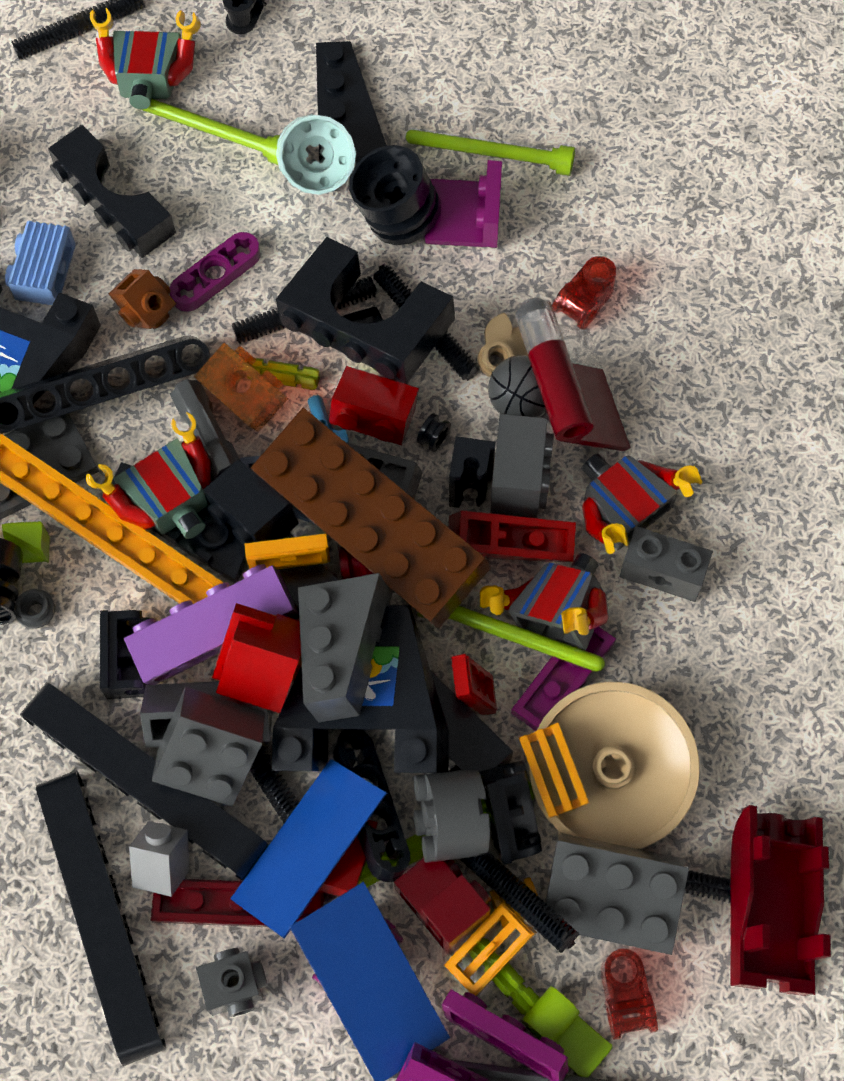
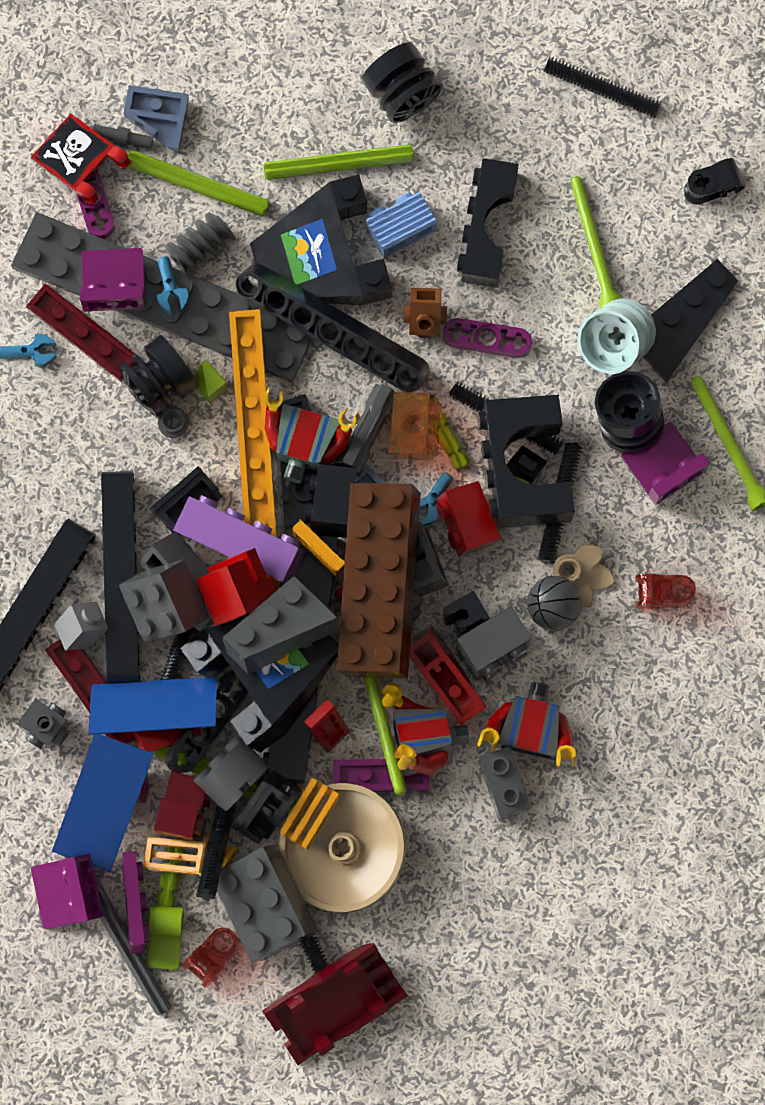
camera: 50 degrees right, 10 degrees up
(144, 61) = (604, 160): torso -> none
(433, 432) = (482, 570): black bush -> none
(570, 379) = (582, 631): dark red door -> none

